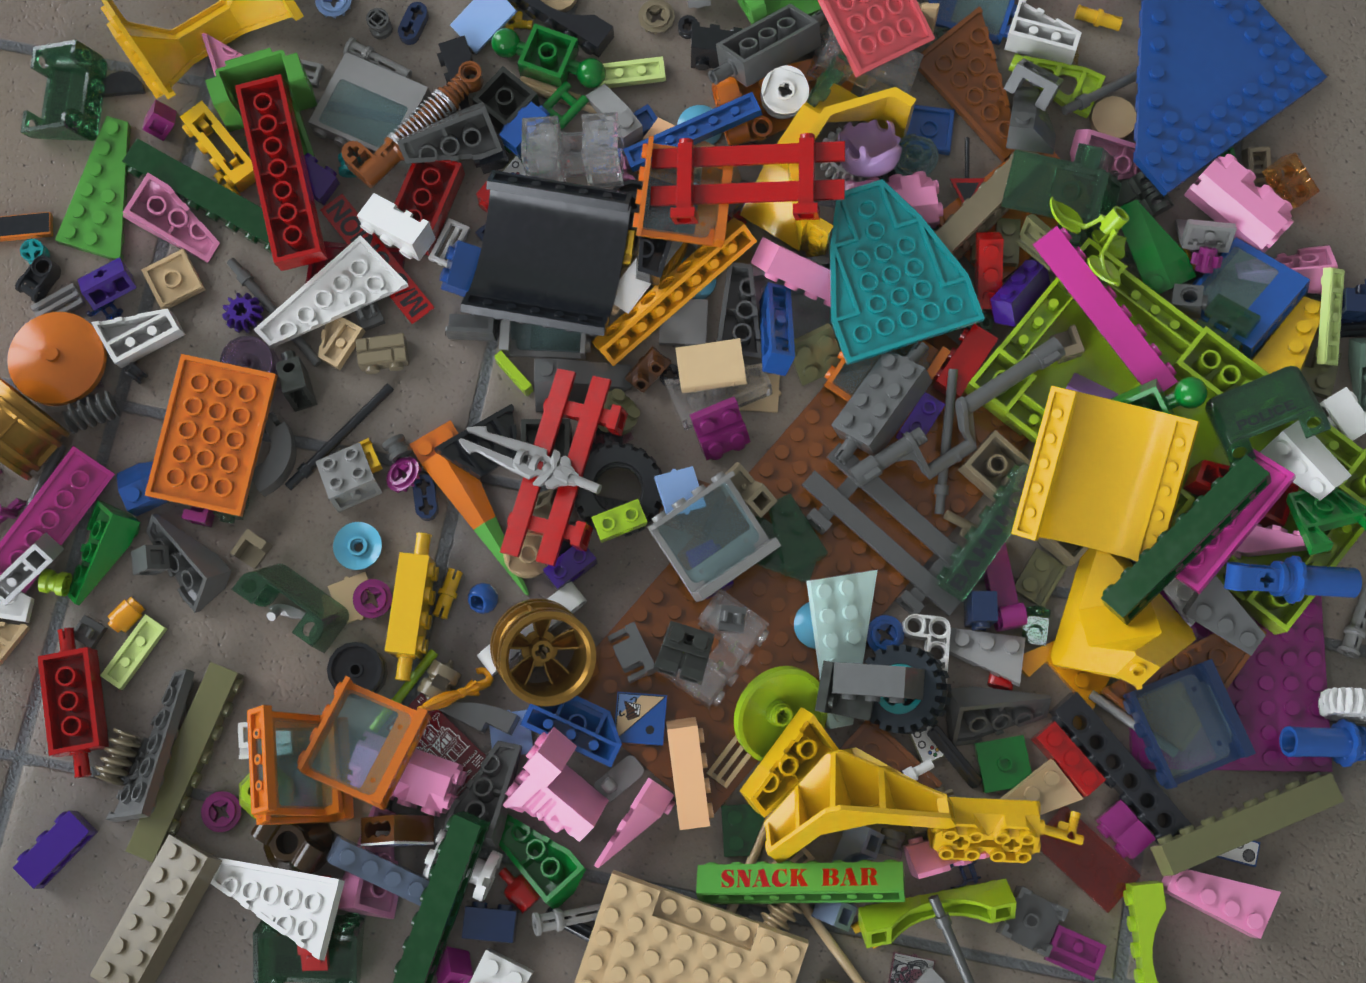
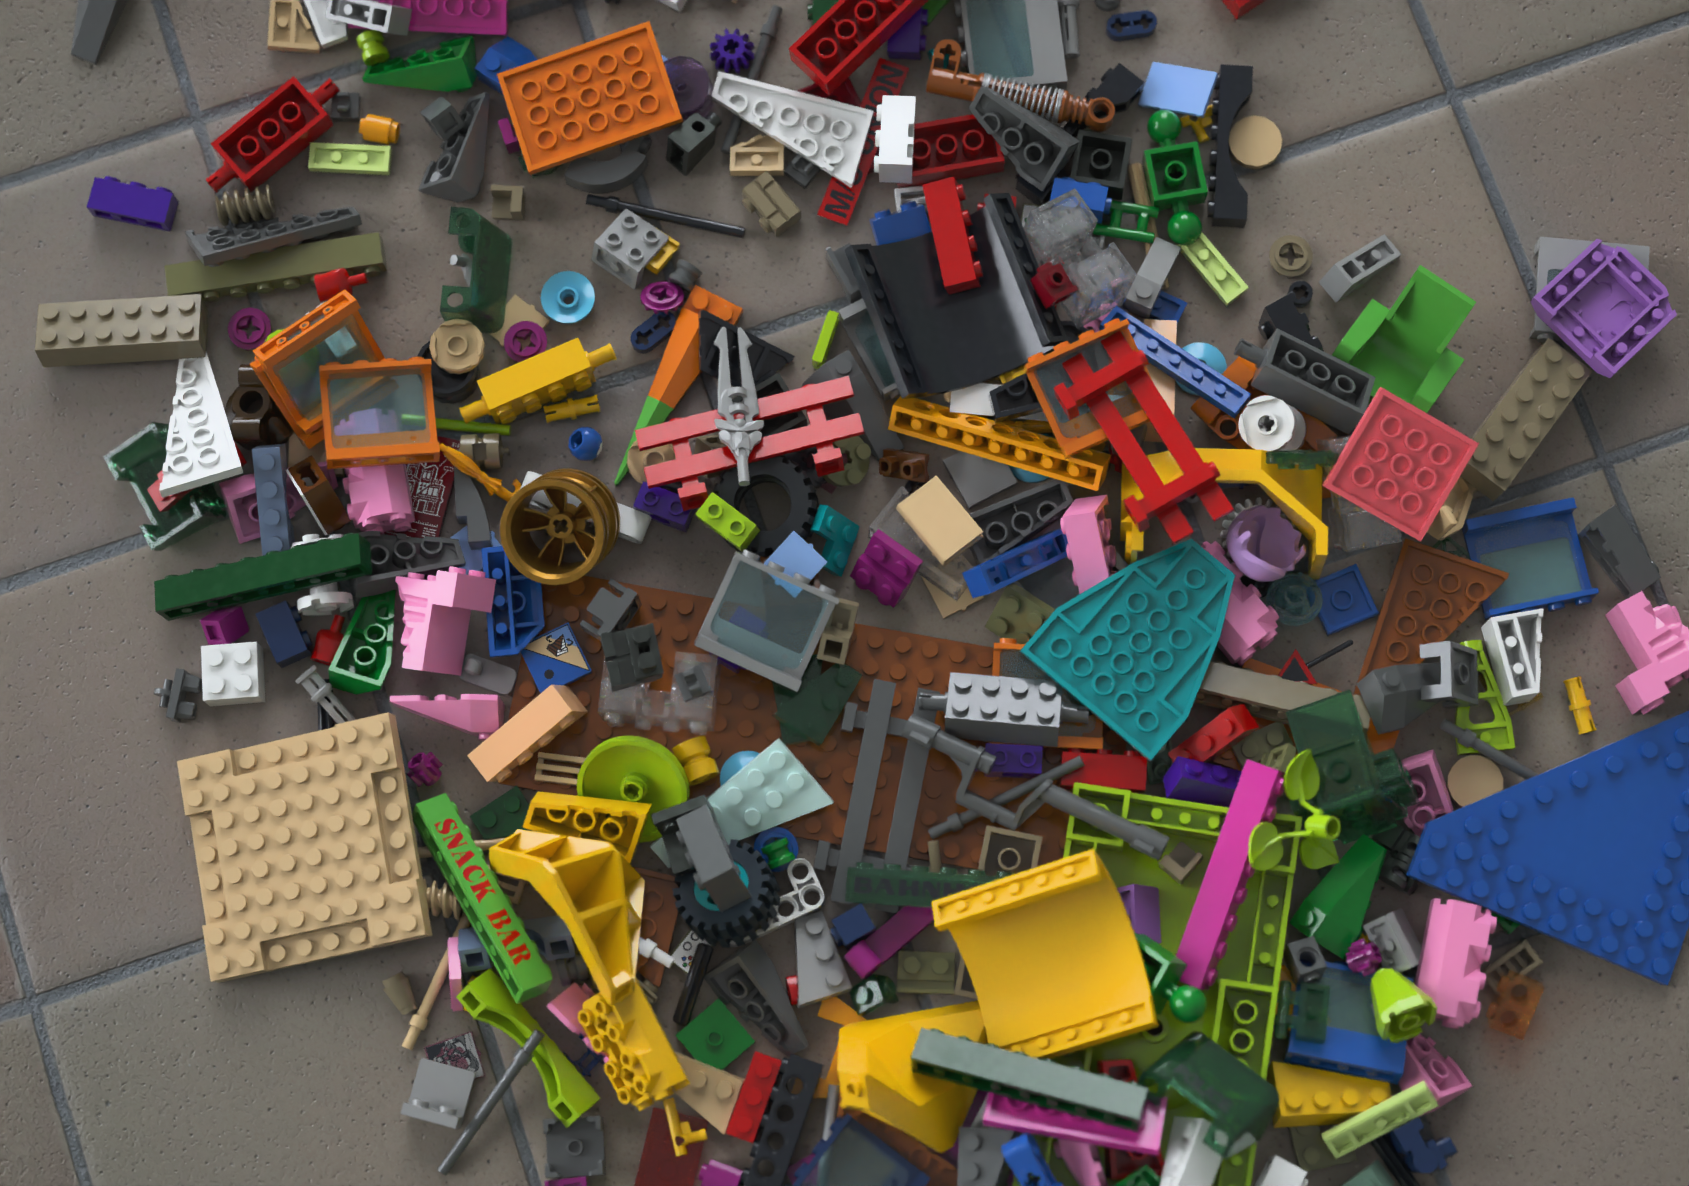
camera: 65 degrees right, 0 degrees up
(232, 718) = (335, 281): none -> red piece
(346, 650) = (457, 346): none -> tan tile
(496, 231) = (952, 236): none -> red brick
(586, 176) = (1052, 284): none -> dark red brick
(667, 871) = (424, 769): none -> magenta gear
(671, 448) = (839, 536): none -> teal plate
(785, 654) = (695, 760): none -> yellow wheel
(843, 937) = (454, 973): none -> bright pink tile
(893, 633) = (778, 853): none -> green wheel
(1258, 253) = (1399, 1006): none -> lime cone

